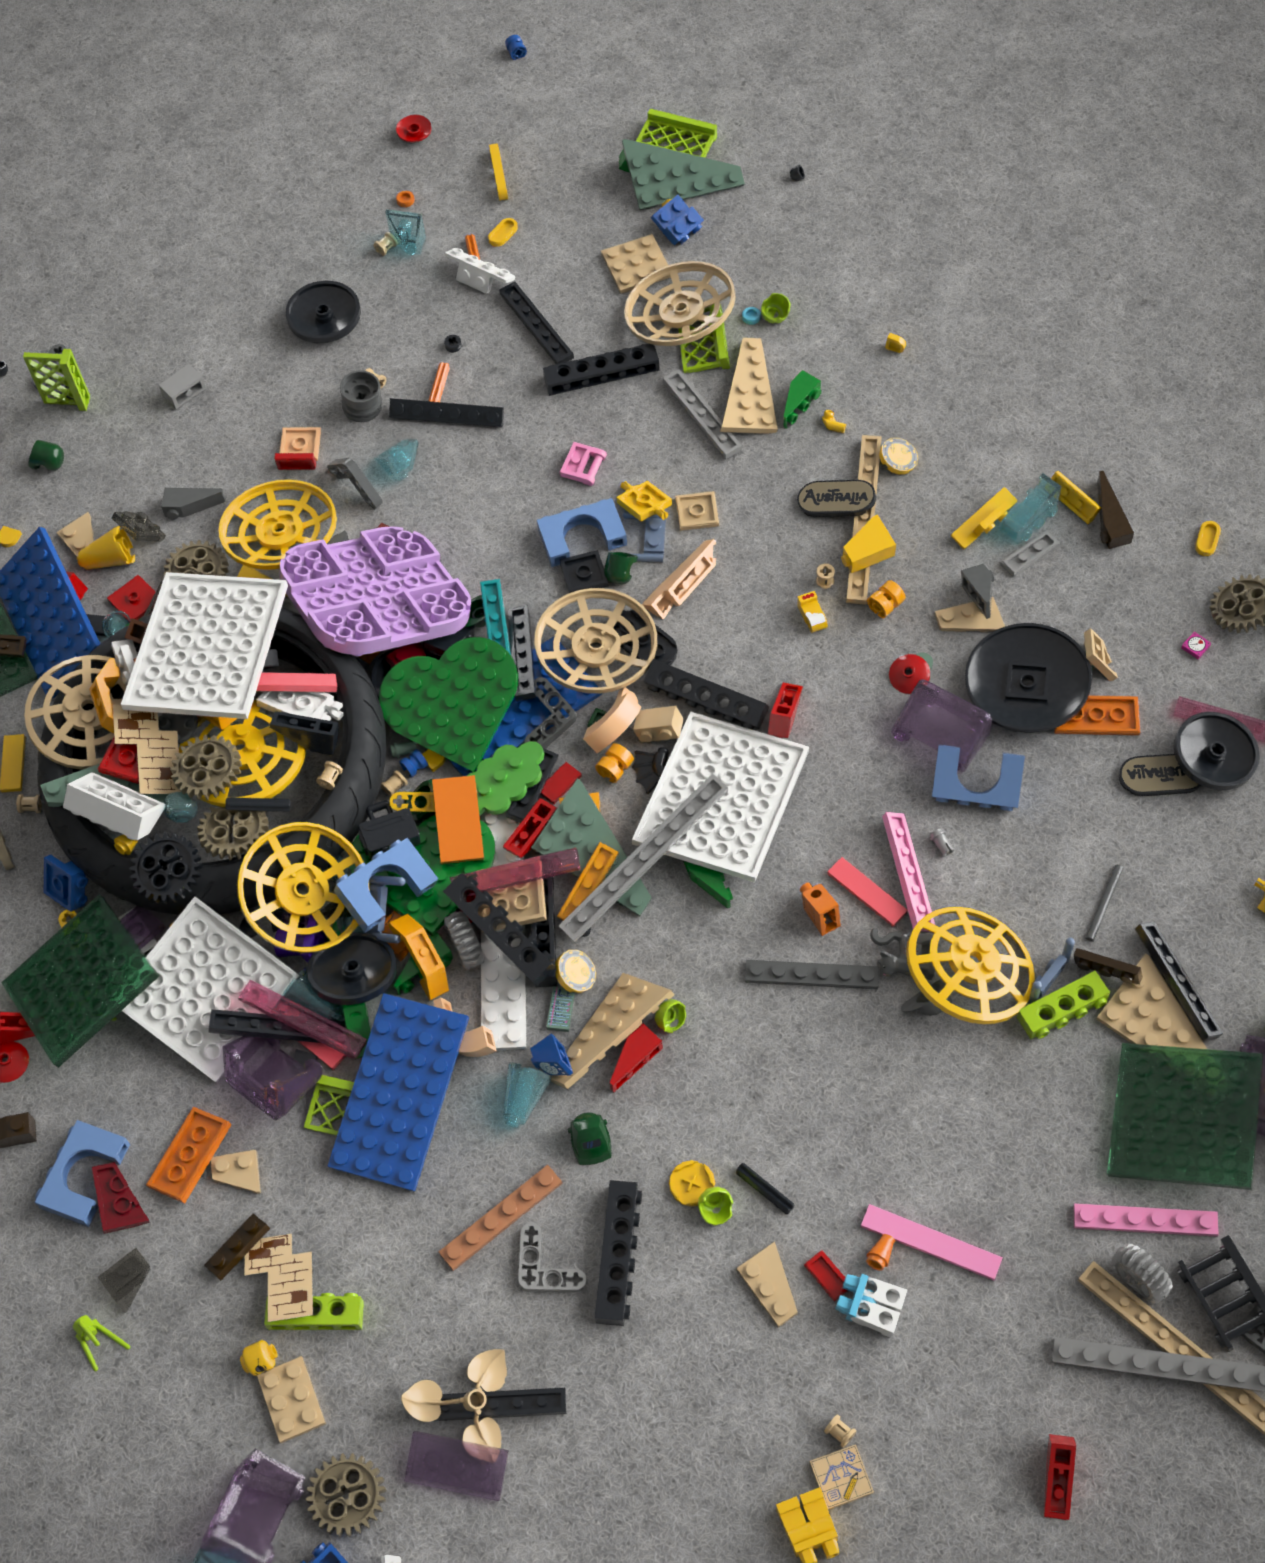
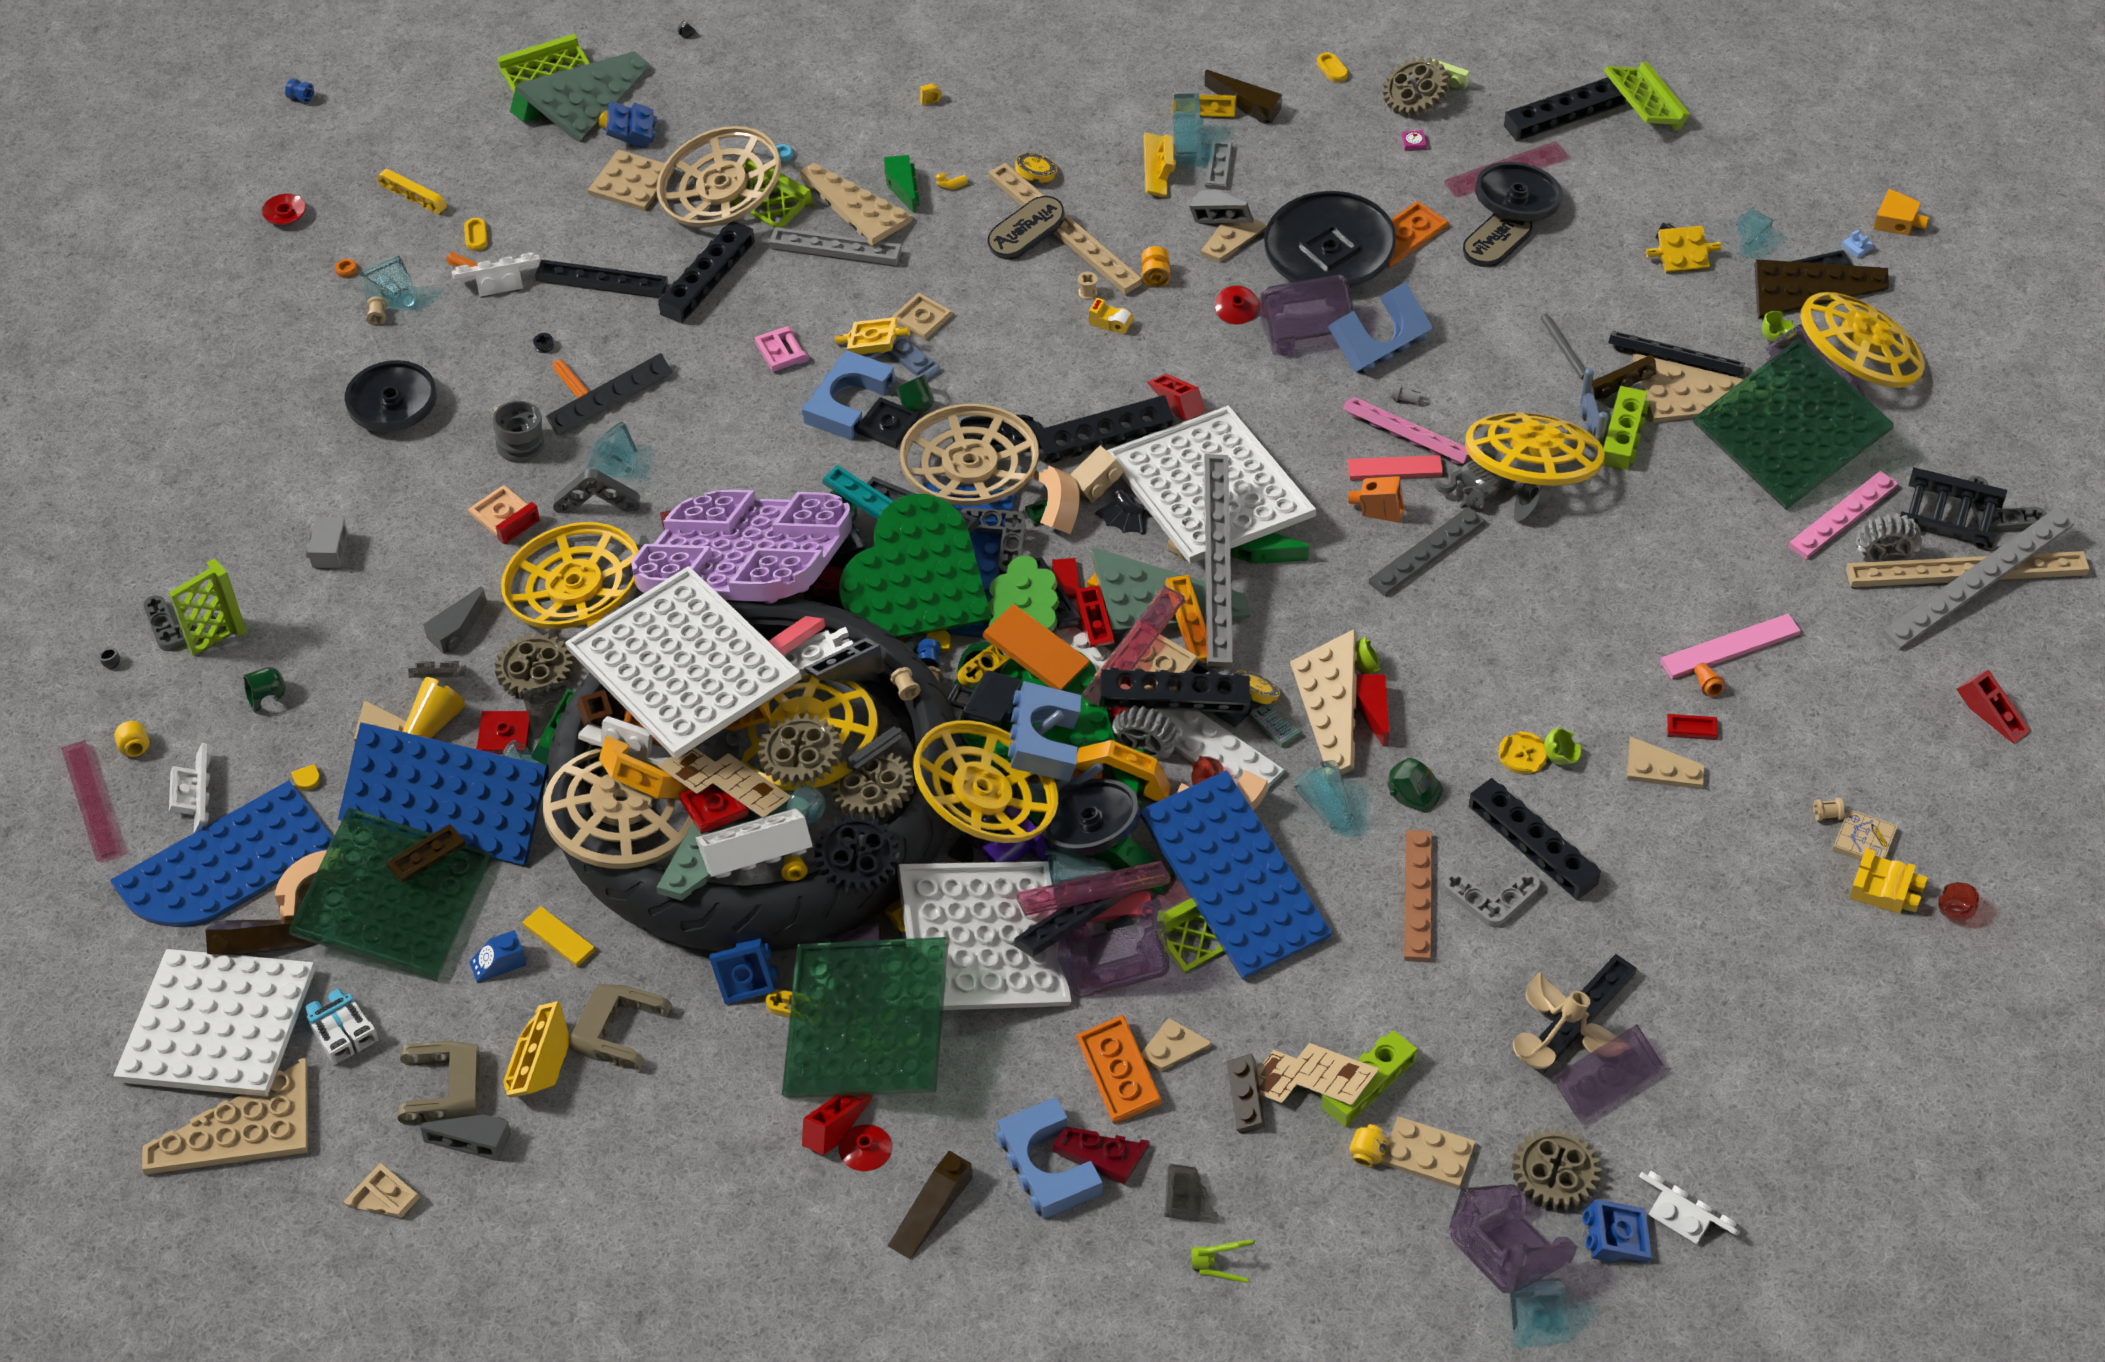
camera: 50 degrees left, 10 degrees down
(28, 803) = (620, 949): tan bush -> none
(473, 1005) = (1205, 768): none -> clear red hair
(551, 1057) = (1317, 749): blue slope -> none
(614, 762) = (1094, 528): light orange wheel -> none
(682, 581) = (975, 367): light nougat wedge -> none
(765, 1188) = (1577, 711): black axle -> none
(775, 303) = (802, 128): lime hair -> none
(868, 546) = (1100, 237): yellow slope -> none
(872, 1304) = (1746, 713): white hips -> none
(1098, 655) = (1348, 187): tan wing -> none

